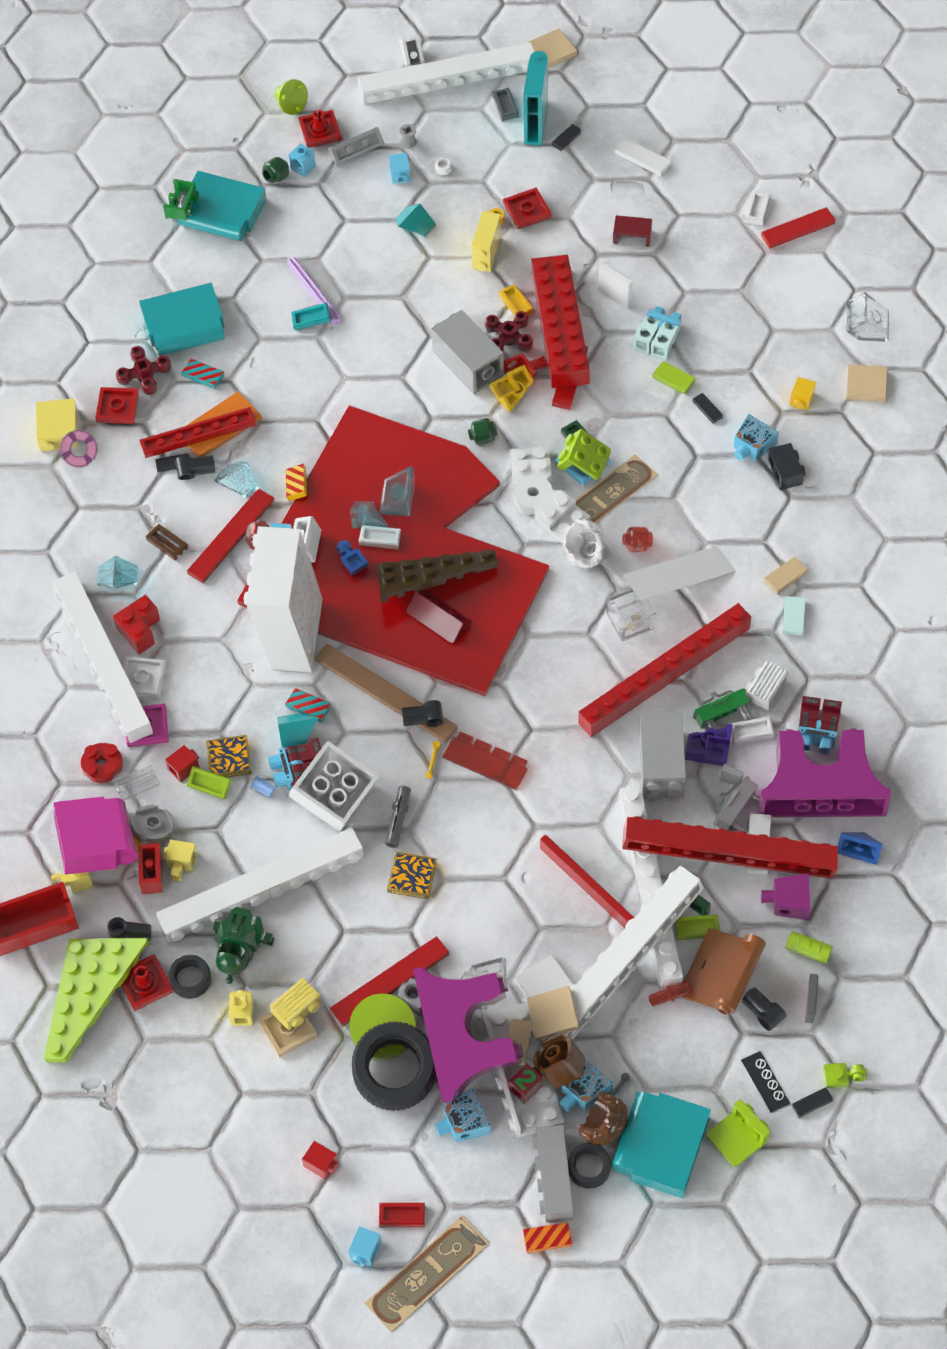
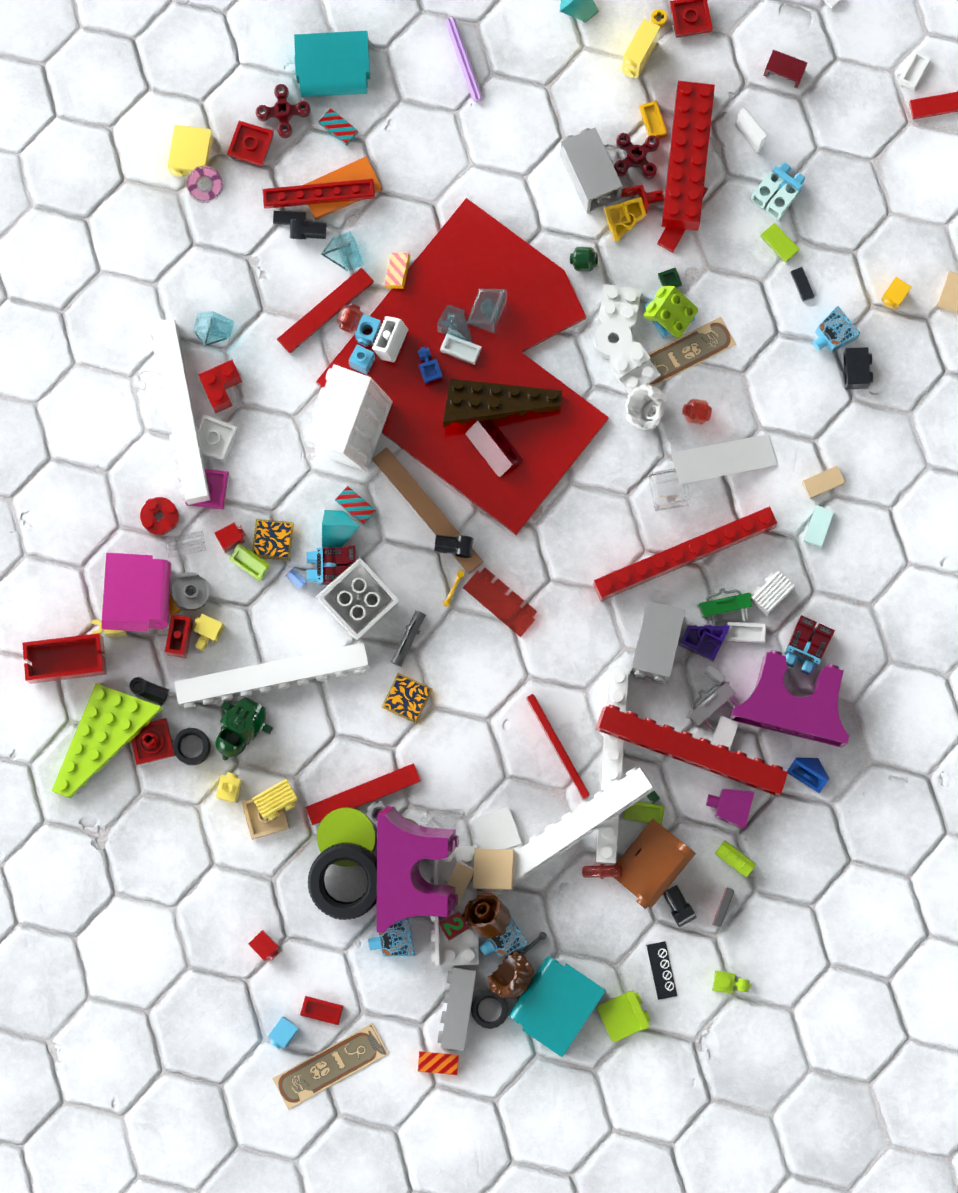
camera: 15 degrees right, 20 degrees up
(177, 551) = (274, 314): reddish brown tile -> none
(311, 316) = (453, 89): teal tile -> none
(812, 1102) = (696, 1000): black piece -> none

